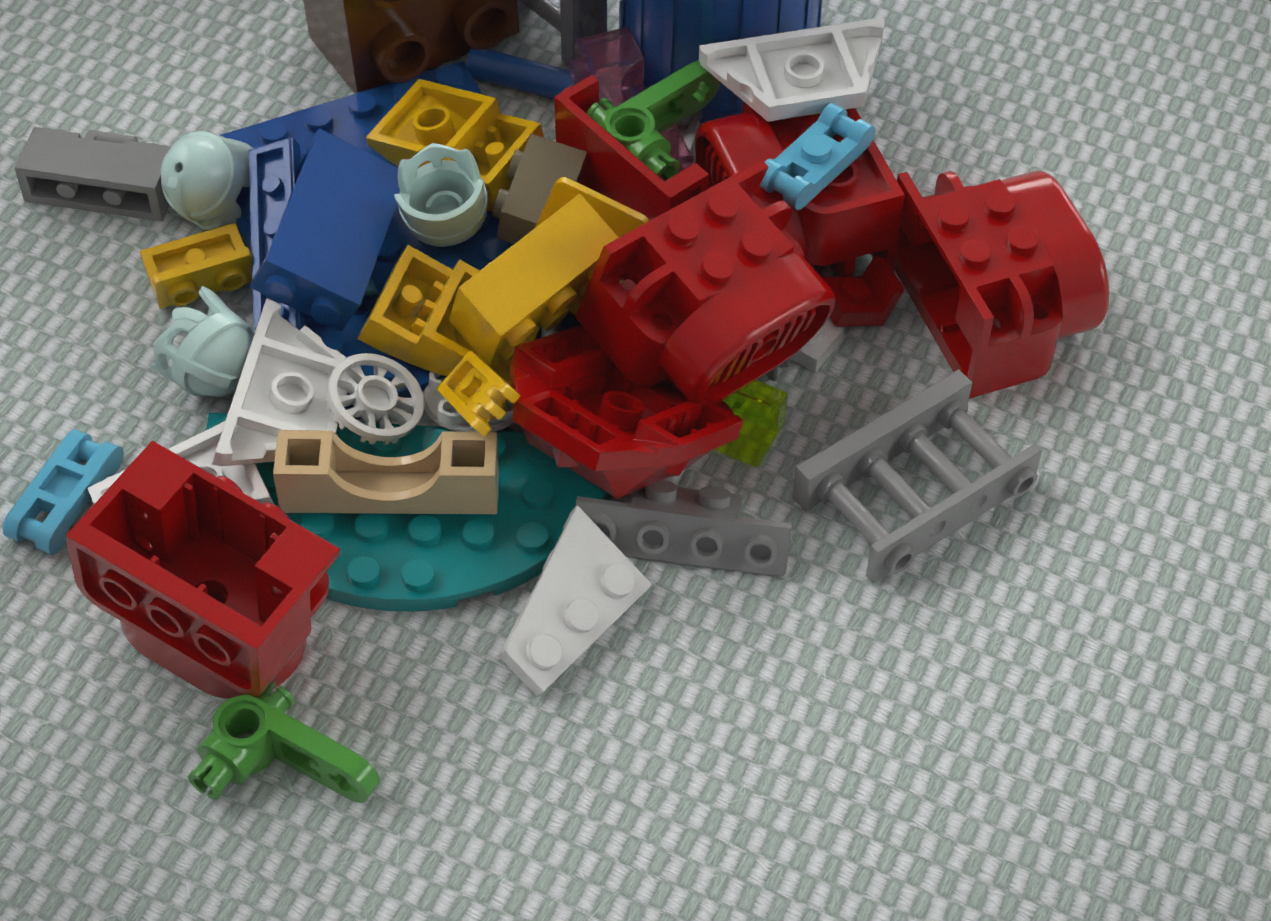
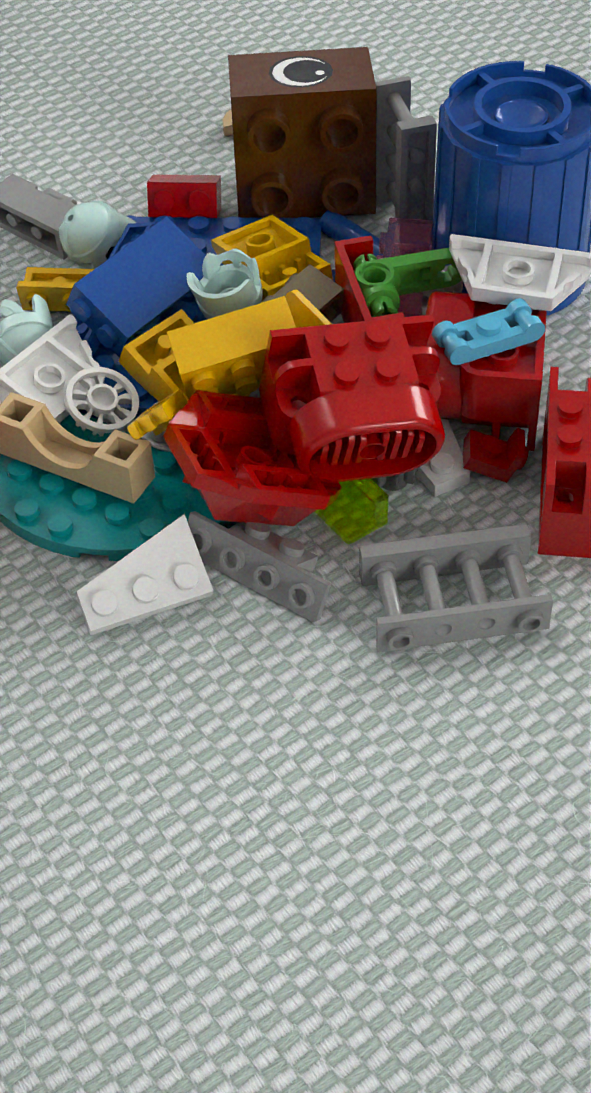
camera: 30 degrees right, 5 degrees down
(278, 85) = (184, 195): none -> red brick

